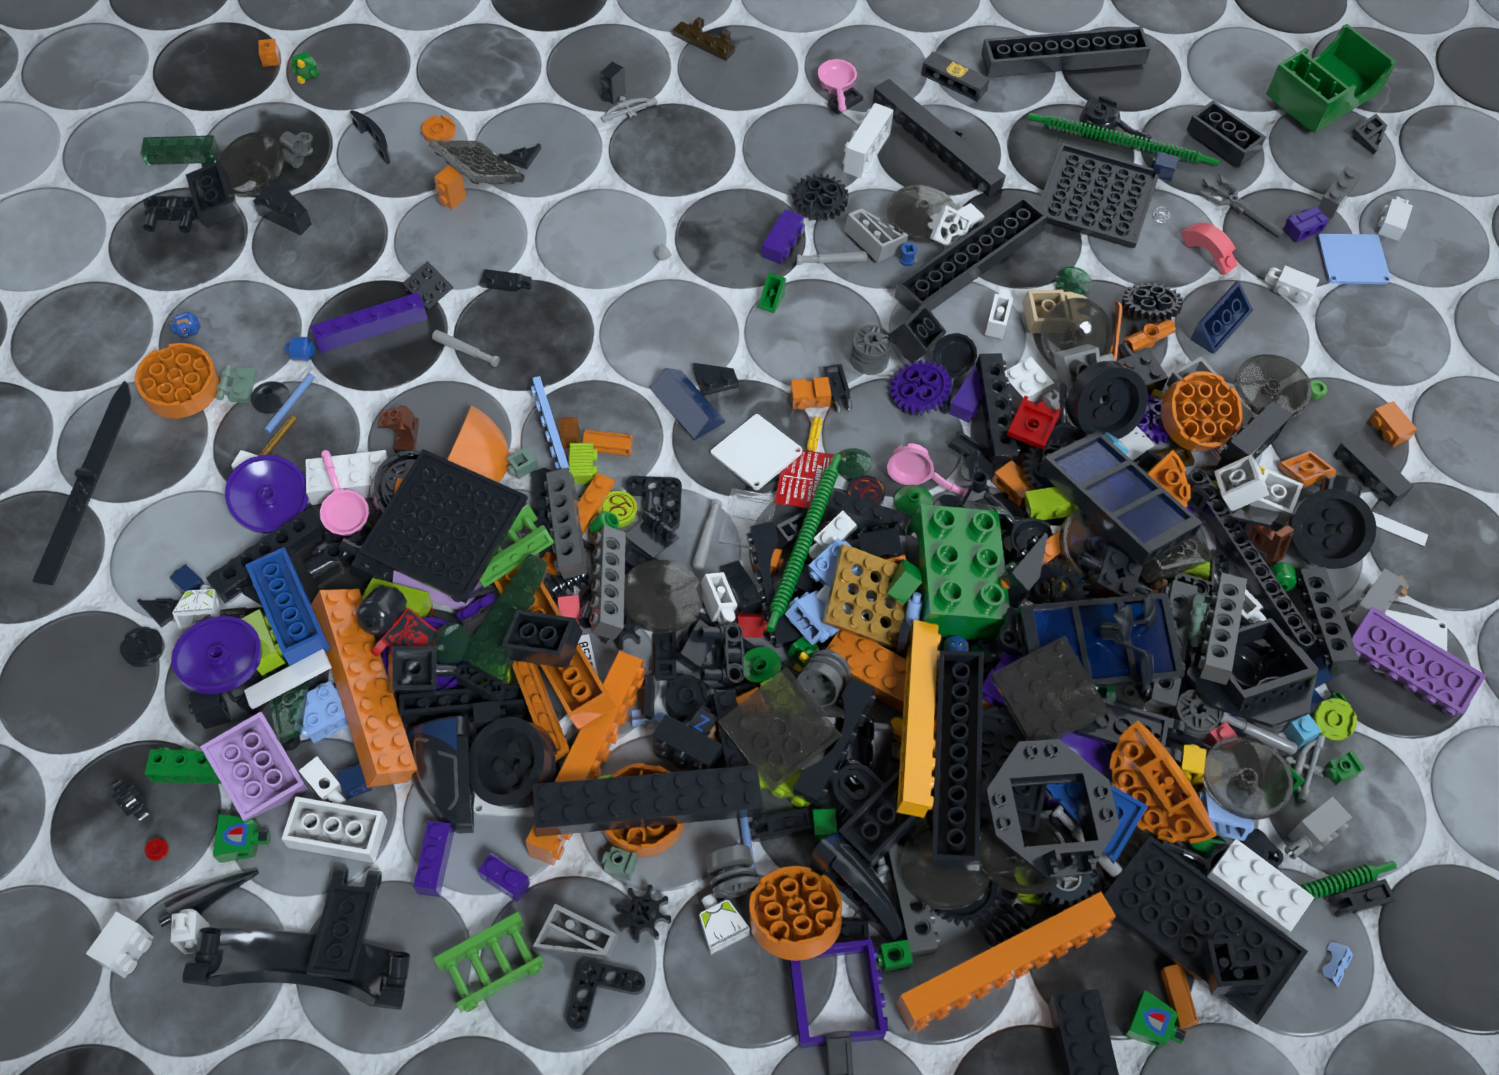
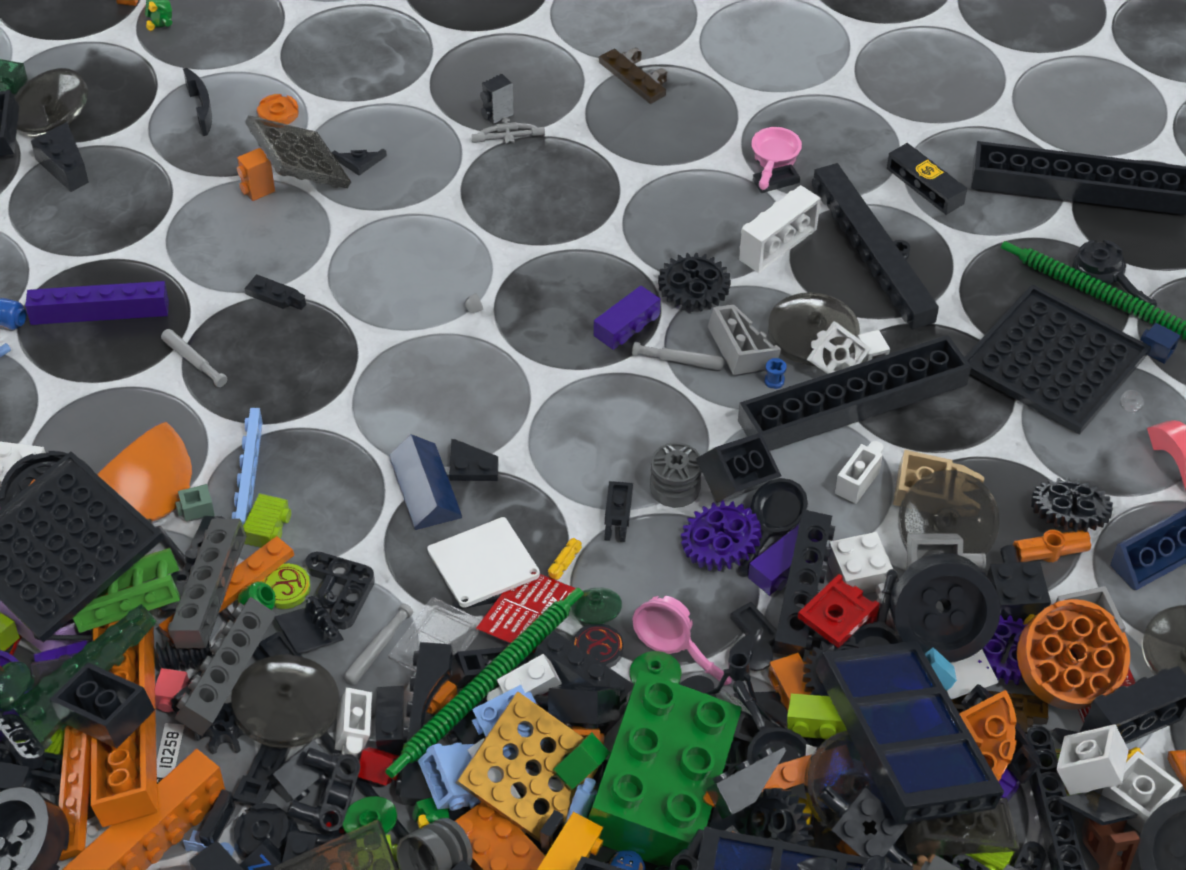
camera: 20 degrees right, 10 degrees down
(296, 147) = (106, 95): dark grey piece -> none
(404, 425) = (78, 423): copper tile -> none
(429, 284) = (183, 277): black hinge -> none
(569, 431) = (268, 479): clear orange brick -> none
(609, 442) = (310, 505): orange piece -> none
(772, 292) = (585, 379): green slope -> none
(810, 393) = (579, 509): orange brick -> none
(1073, 280) = (979, 454): clear green dish -> none
(1114, 347) = (994, 553): orange piece -> none

